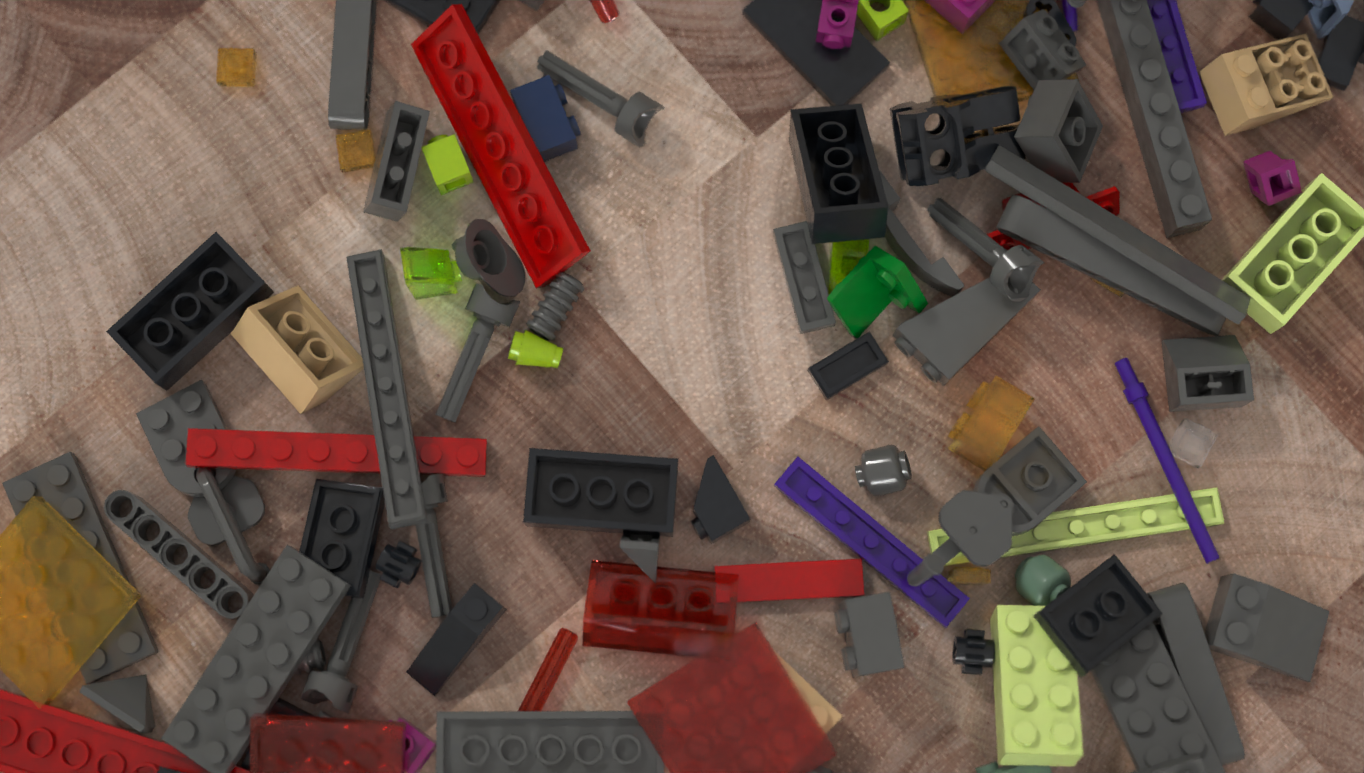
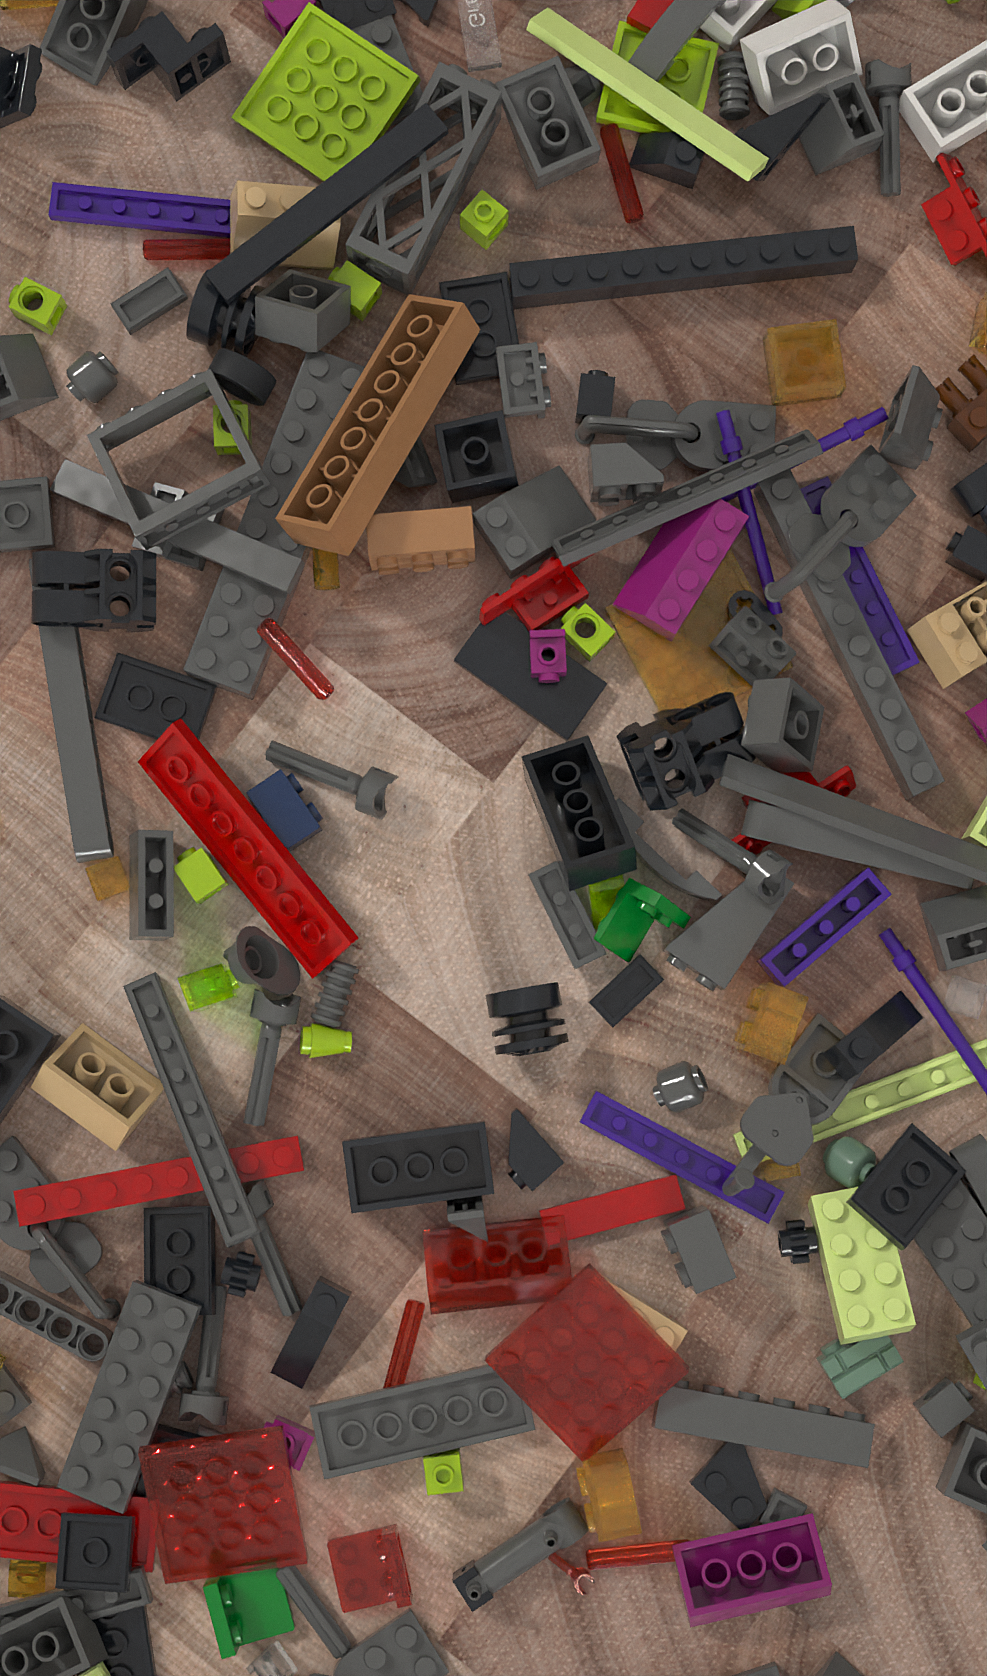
camera: 15 degrees left, 5 degrees up
(743, 361) = (527, 1019): none -> black wheel
(1063, 339) = (824, 927): none -> dark purple brick
(1089, 459) = (873, 1036): none -> black slope

